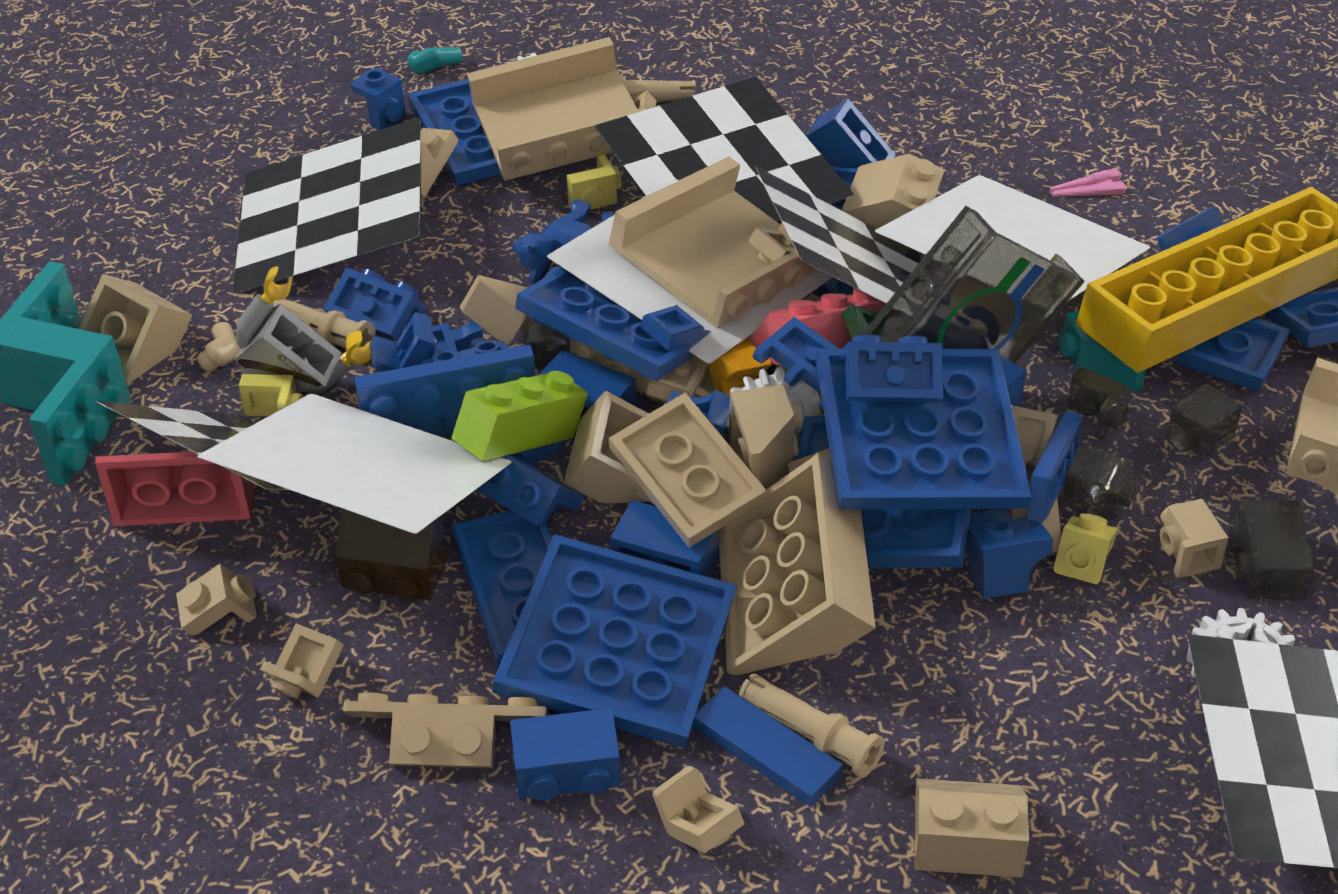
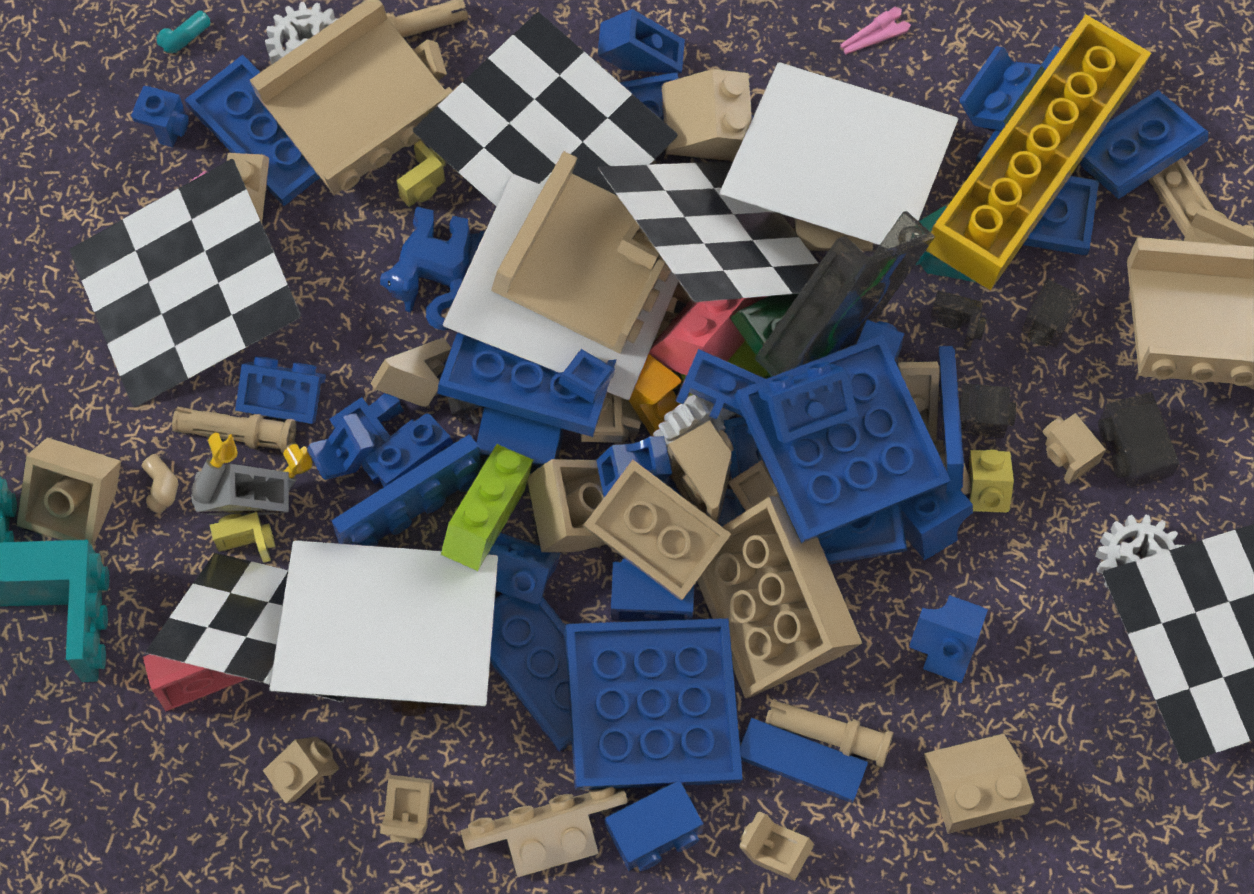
camera: 20 degrees left, 25 degrees up
(985, 666) = (949, 637): none -> blue brick

